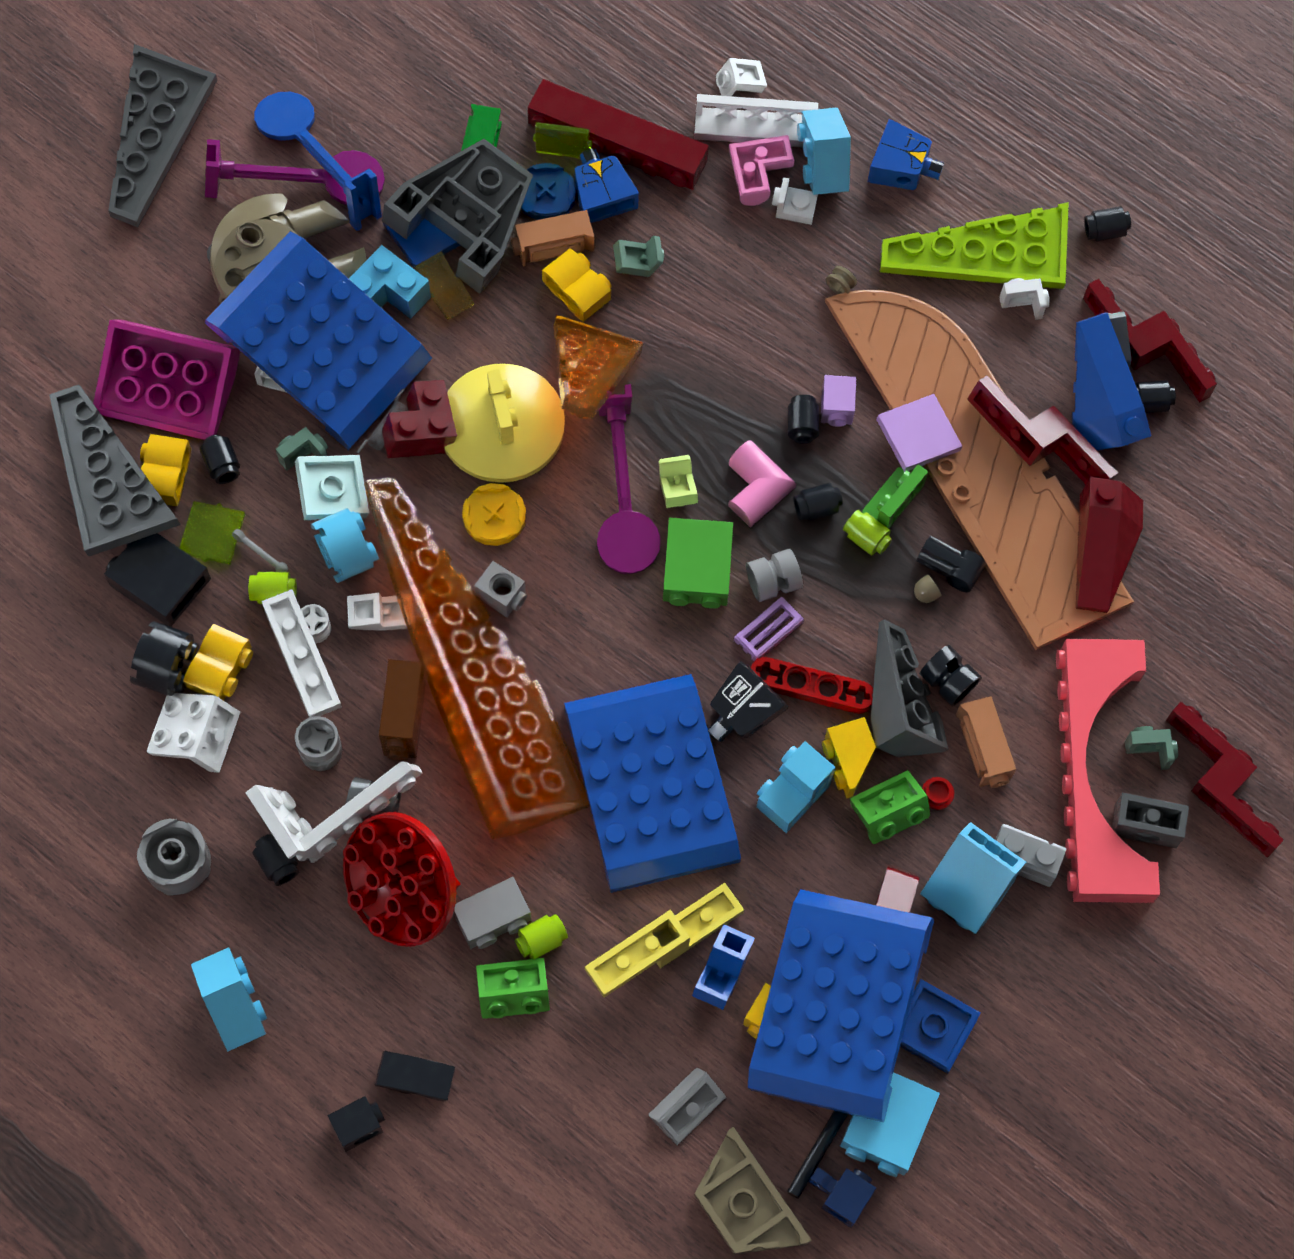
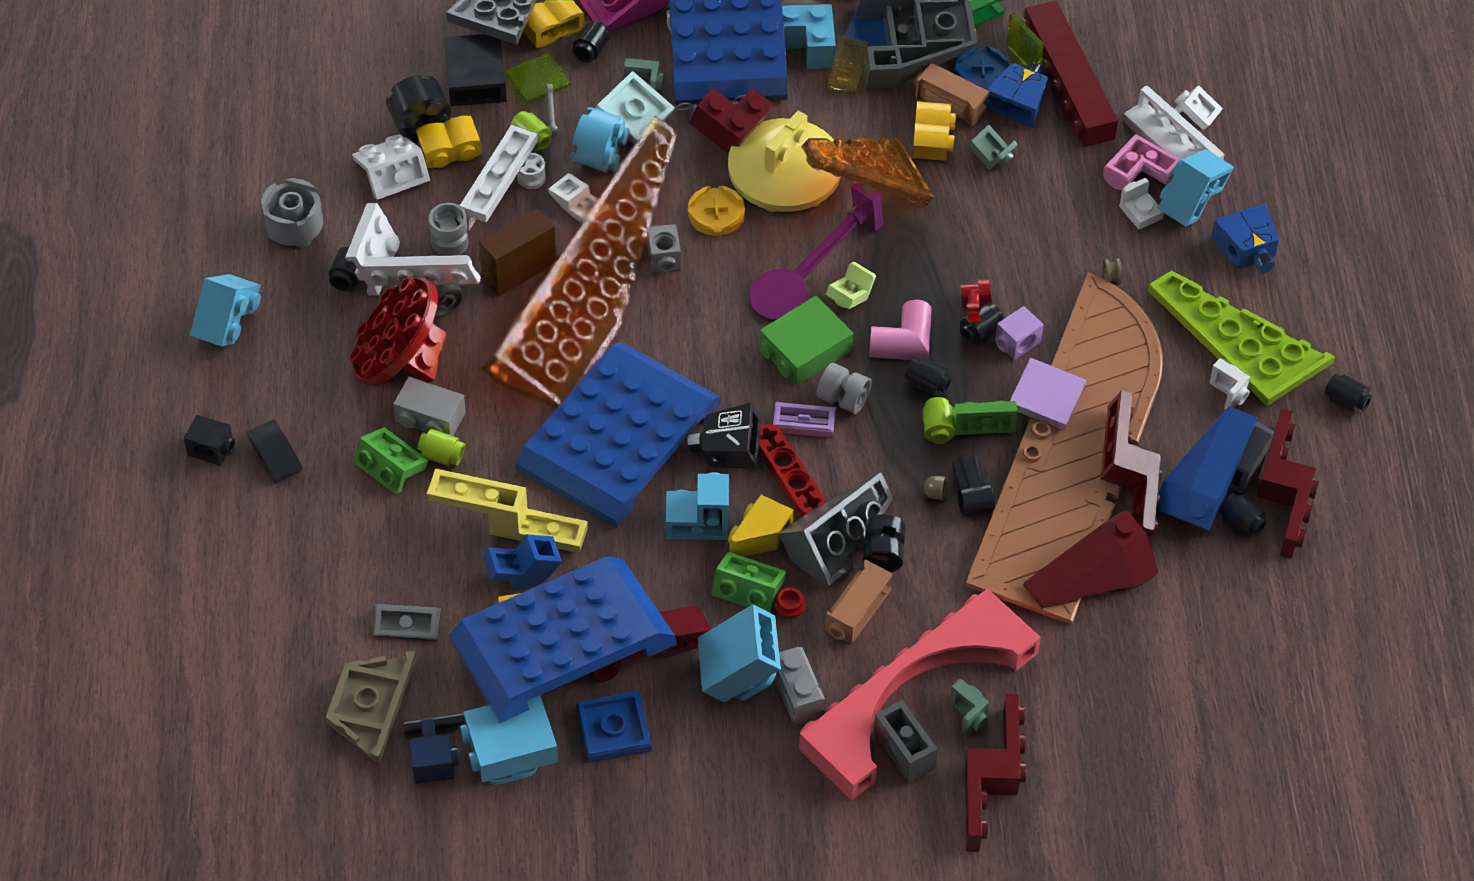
camera: 50 degrees right, 15 degrees down
(770, 396) = (973, 295): none -> red brick

